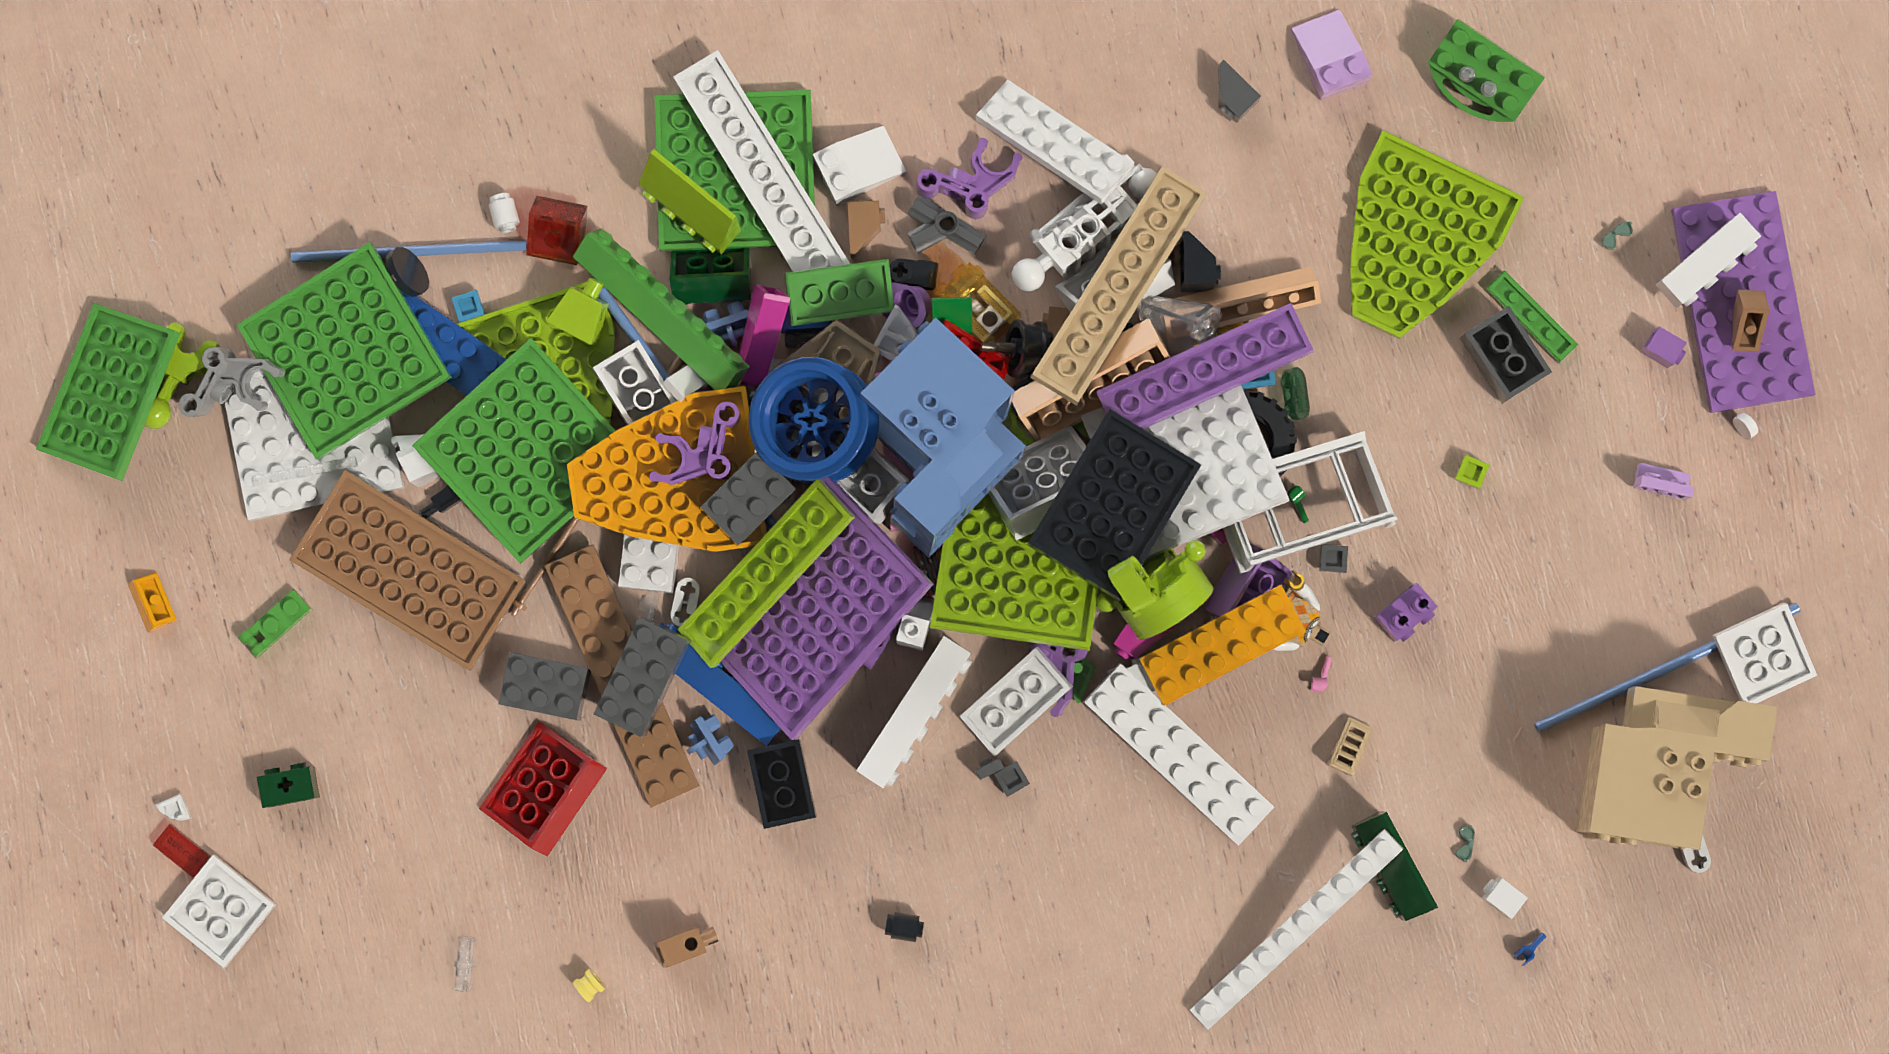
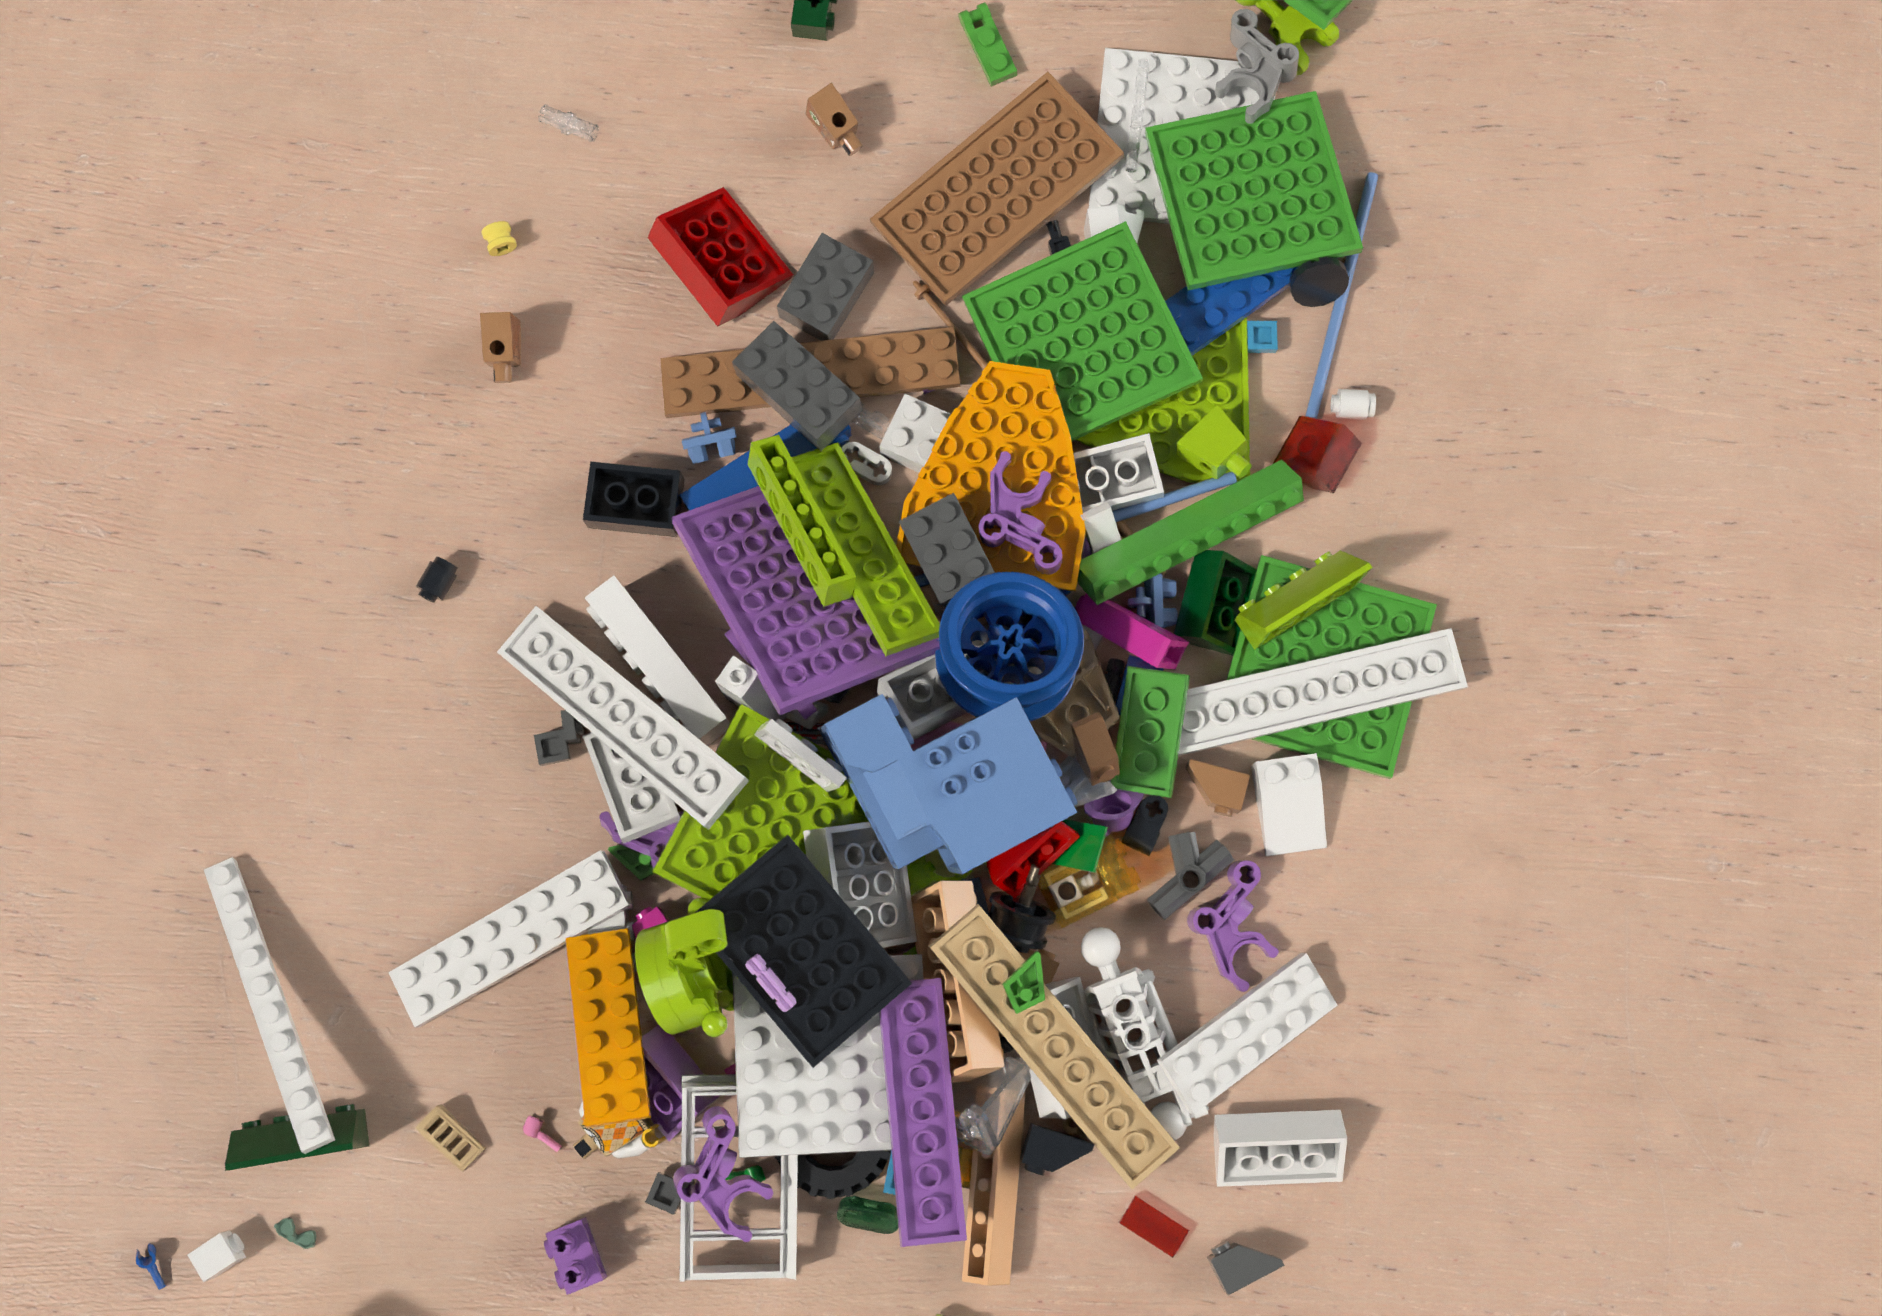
camera: 110 degrees right, 5 degrees down
(387, 740) = (829, 109): none -> medium nougat torso
(760, 629) = (801, 520): none -> lime brick
(871, 329) = (1095, 749): none -> medium nougat slope
(956, 559) = (801, 754): none -> white plate
(970, 723) = (623, 717): none -> white plate
(1081, 319) = (1026, 984): none -> bright green piece
(1134, 91) = (1279, 1148): none -> white slope
(1148, 516) = (770, 983): none -> lavender axle
(1227, 170) = (1153, 1226): none -> clear red tile
(1306, 520) = (711, 1173): none -> medium lavender piece

